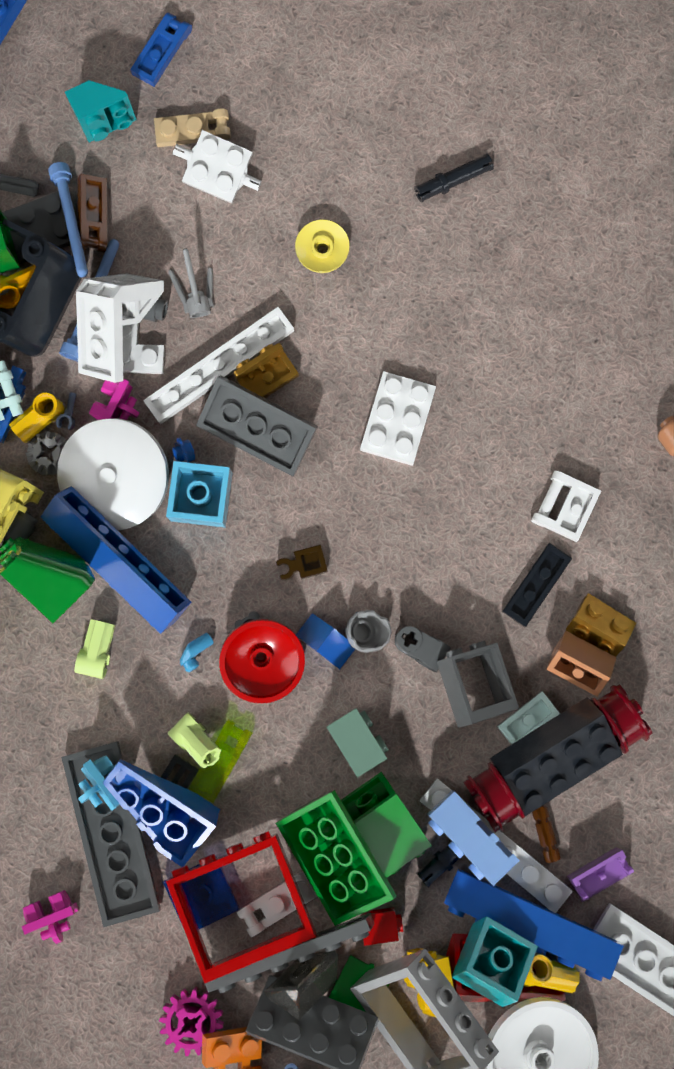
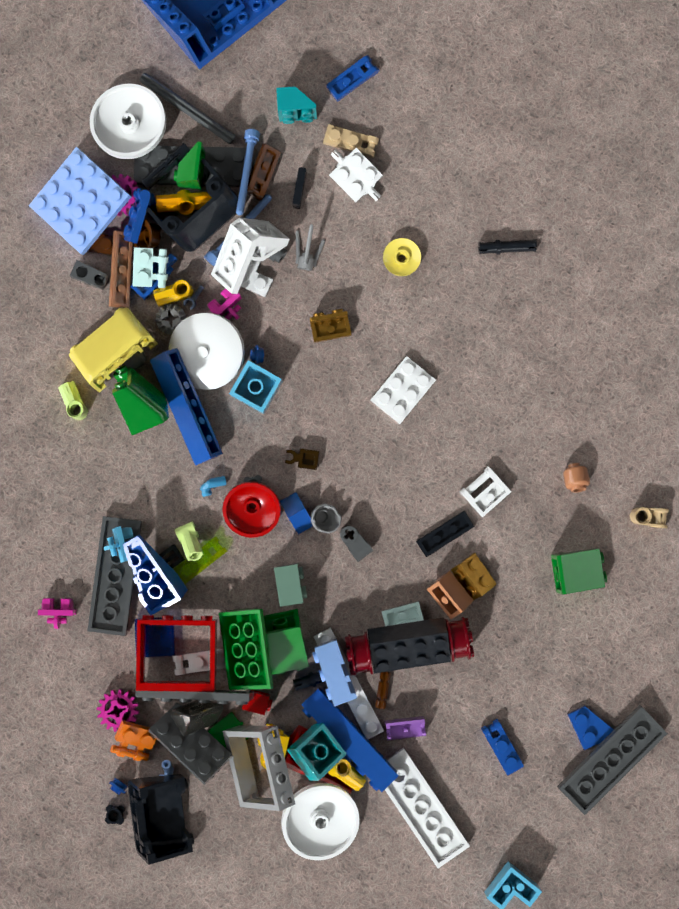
camera: 20 degrees right, 5 degrees up
(94, 655) = (149, 460): yellowish green piece -> none
(149, 213) = (299, 187): none -> black tile
(223, 362) = (302, 307): white plate -> none
(256, 425) = (310, 358): dark grey plate -> none
(497, 678) = (394, 580): dark grey window -> none

